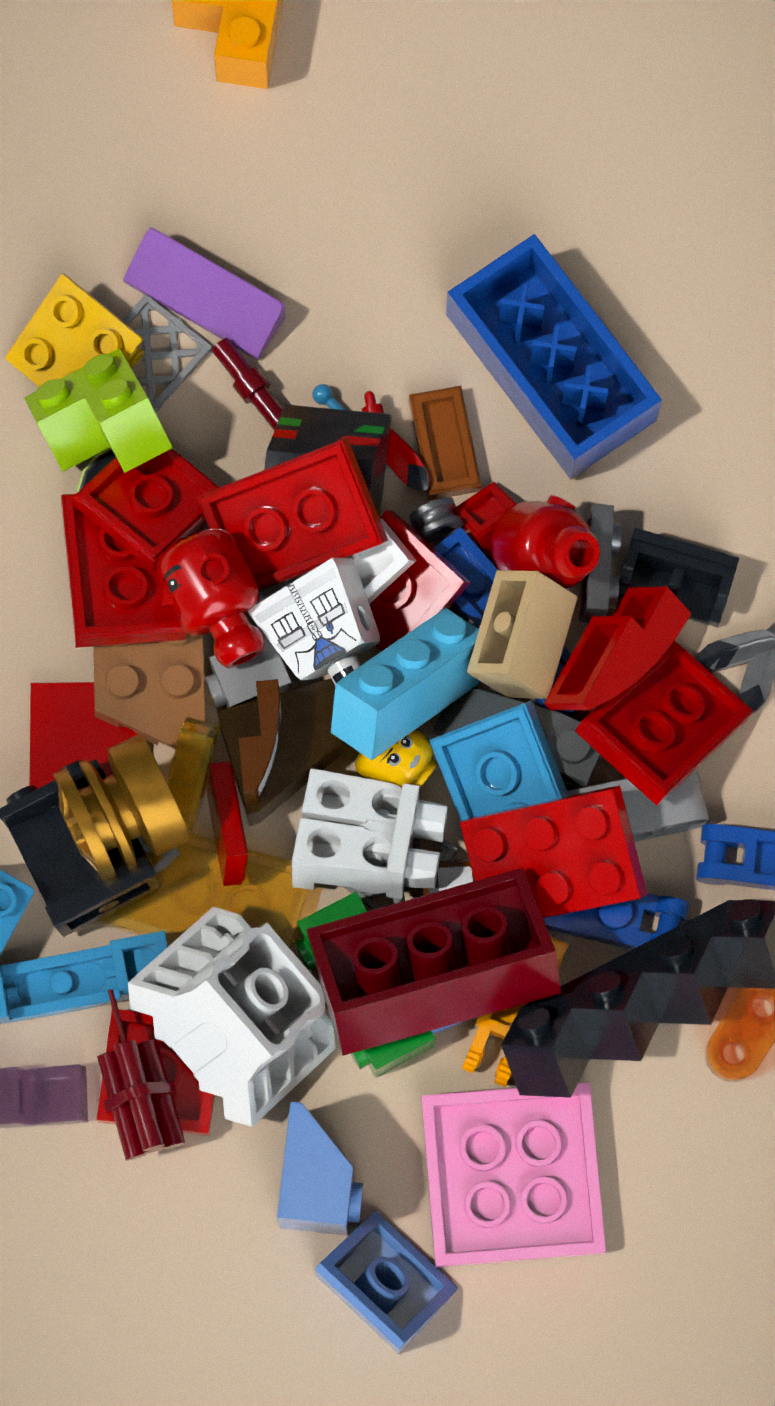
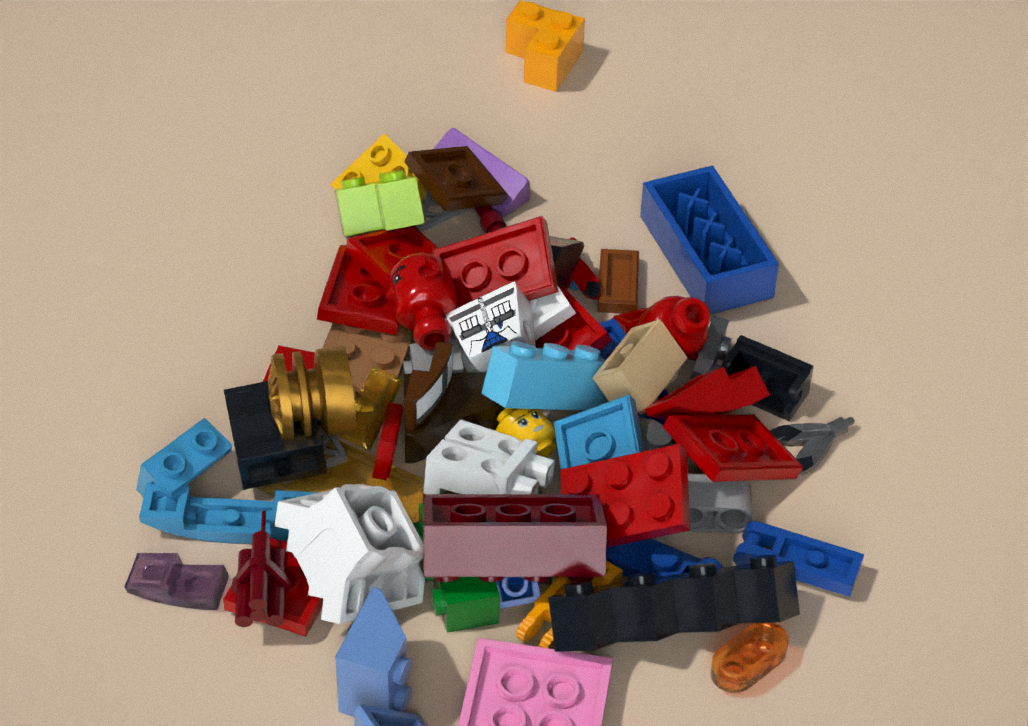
camera: 15 degrees right, 30 degrees down
(184, 332) = (455, 178): none -> reddish brown tile
(436, 519) = (600, 304): flat silver bush -> none

